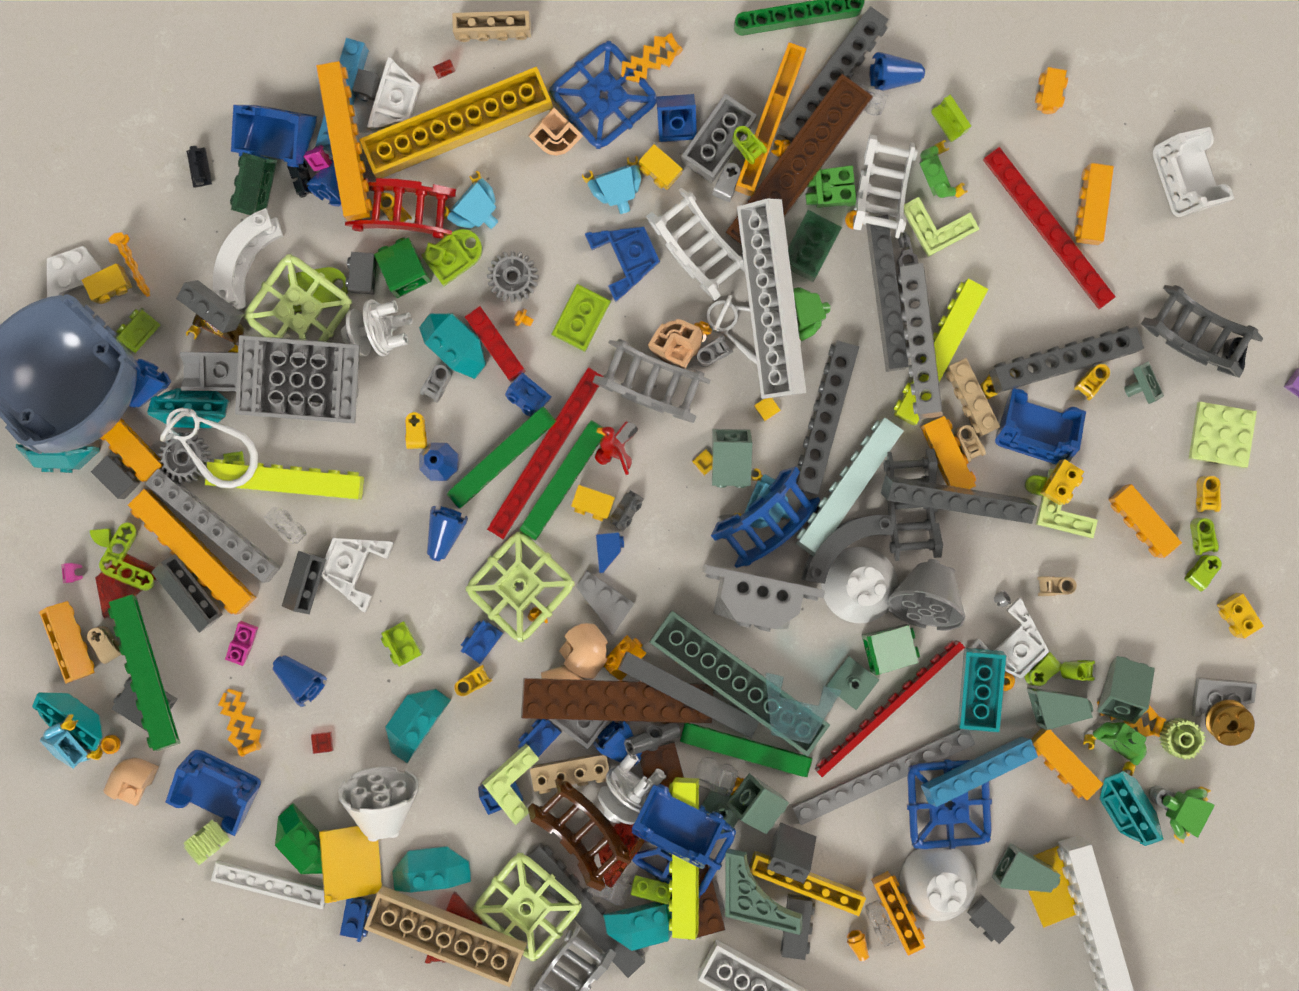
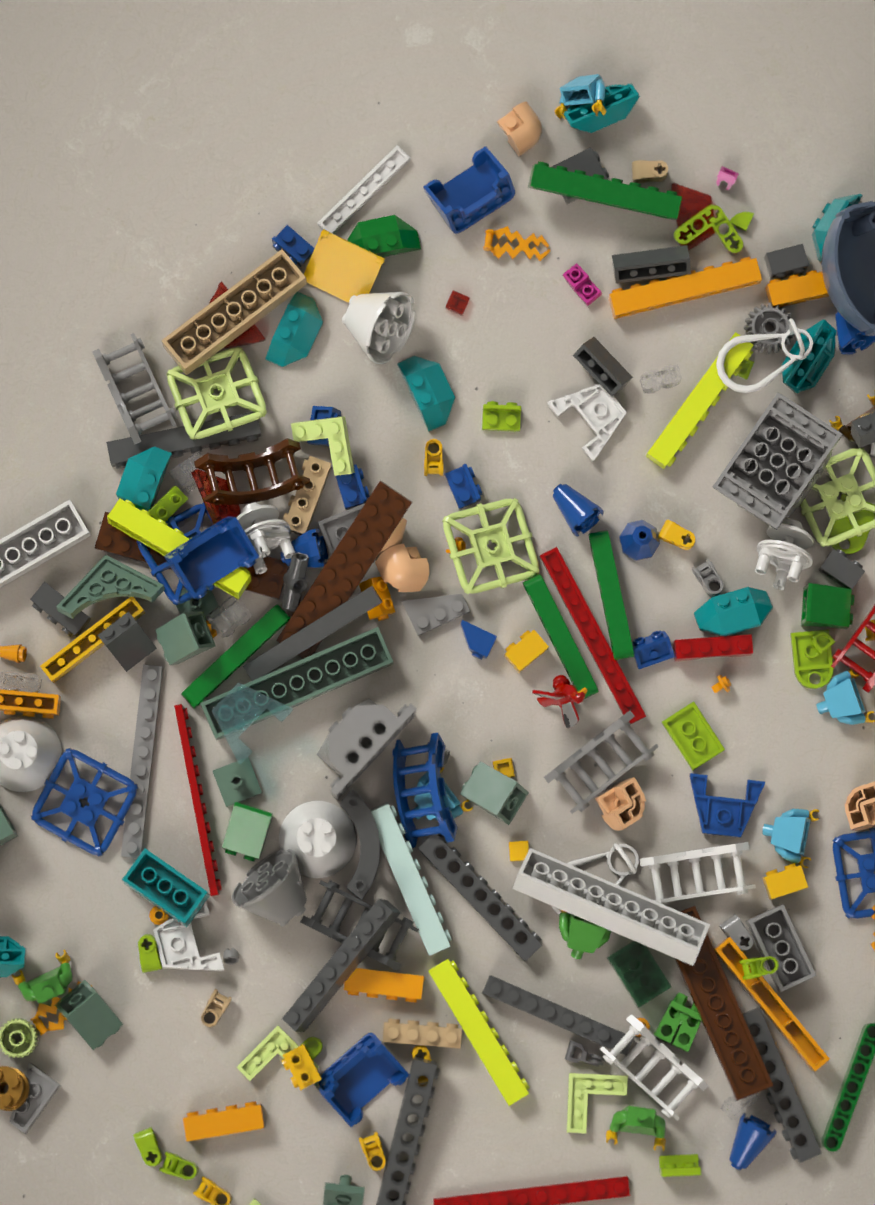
camera: 110 degrees right, 5 degrees down
(67, 641) = (669, 142): light orange brick -> none
(110, 744) = (561, 128): light orange plate -> none
(206, 842) = (432, 160): yellowish green brick -> none
(209, 371) = (830, 393): light grey piece -> none
(213, 526) = (696, 318): light grey brick -> none
(298, 679) = (521, 315): blue cone -> none
(509, 265) = (774, 693): light grey gear -> none
(623, 518) = (497, 669): dark grey hinge -> none
(676, 117) = (821, 923): blue slope -> none
(705, 329) = (620, 836): light orange plate -> none
(716, 350) = (595, 834): light grey piece -> none
(782, 147) = (741, 1001): light orange plate -> none
(916, 275) = (435, 991): light grey brick -> none
(970, 444) = (382, 1008): tan piece -> none
(979, 771) = (98, 843): dark azure brick -> none
(1058, 709) = (110, 945): sand green slope -> none
(1066, 764) = (57, 924): light orange brick -> none
(1078, 670) = (130, 983): lime piece -> none
(1239, 615) = (91, 1155): yellow brick -> none

